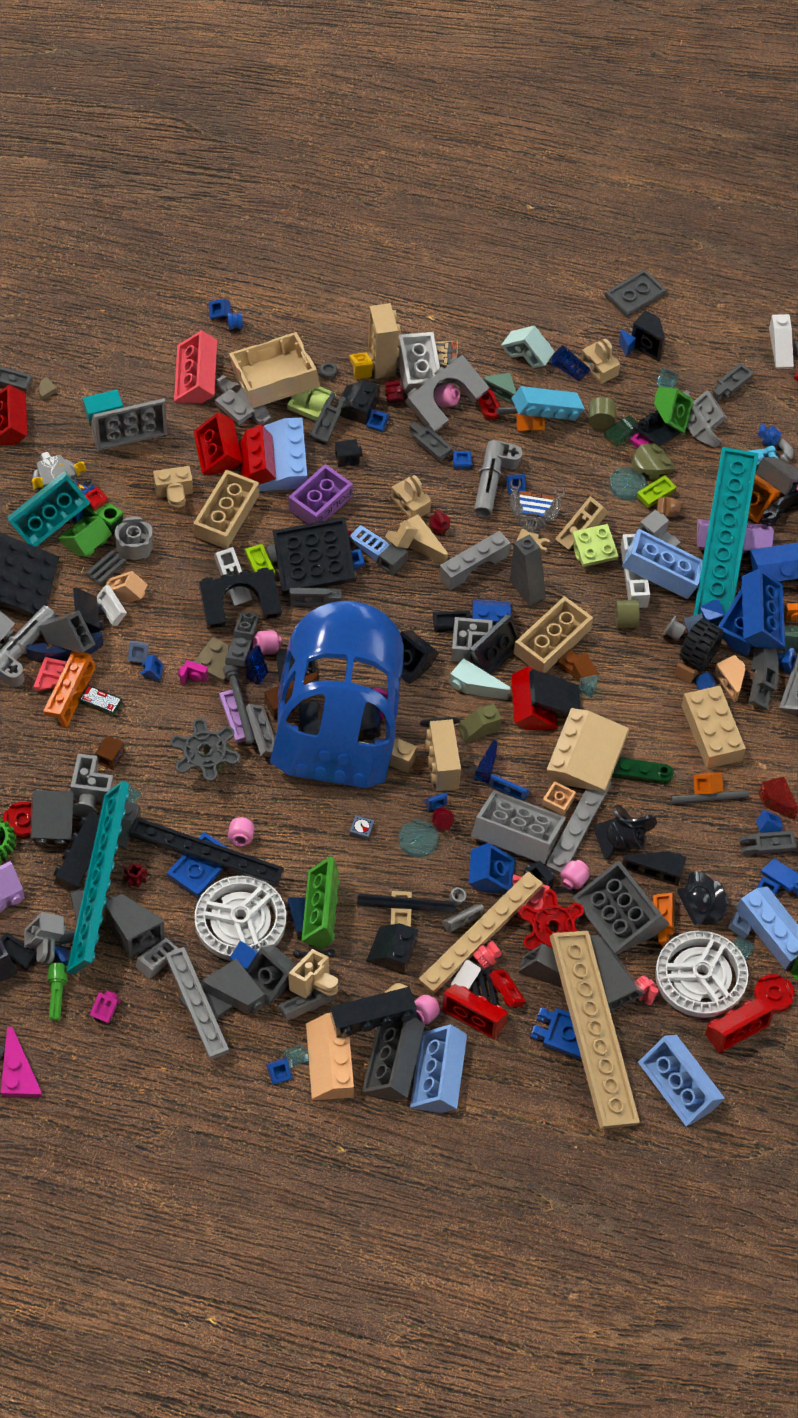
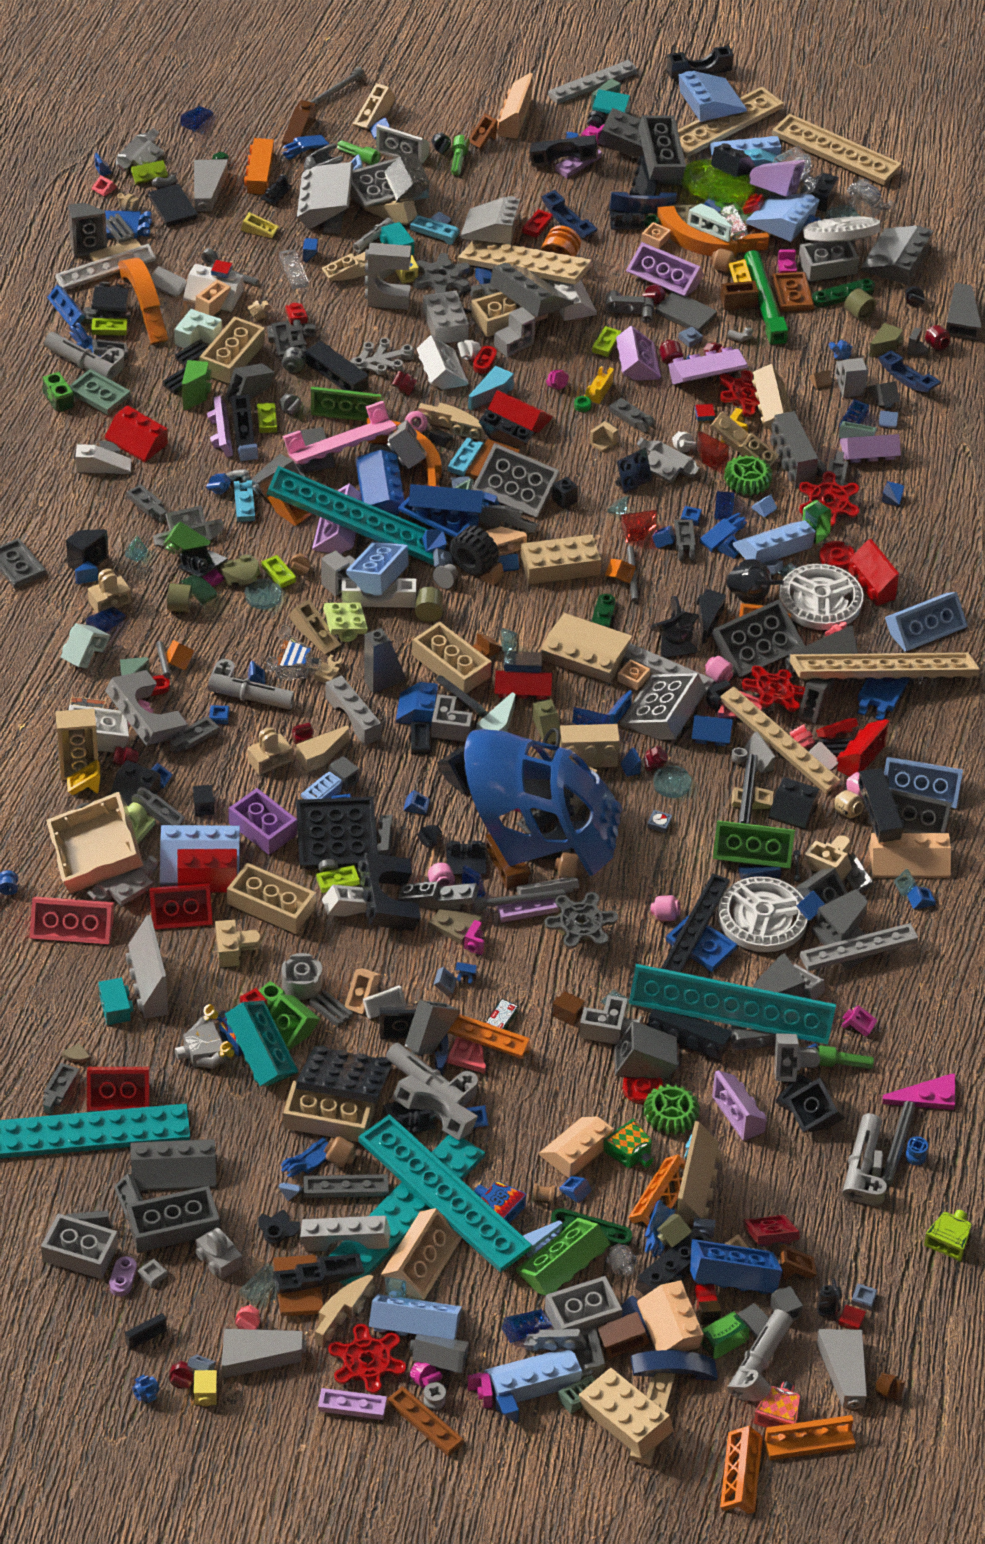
camera: 85 degrees left, 10 degrees down
(403, 536) = (323, 754): tan panel -> none
(547, 403) = (171, 630): medium azure brick -> none

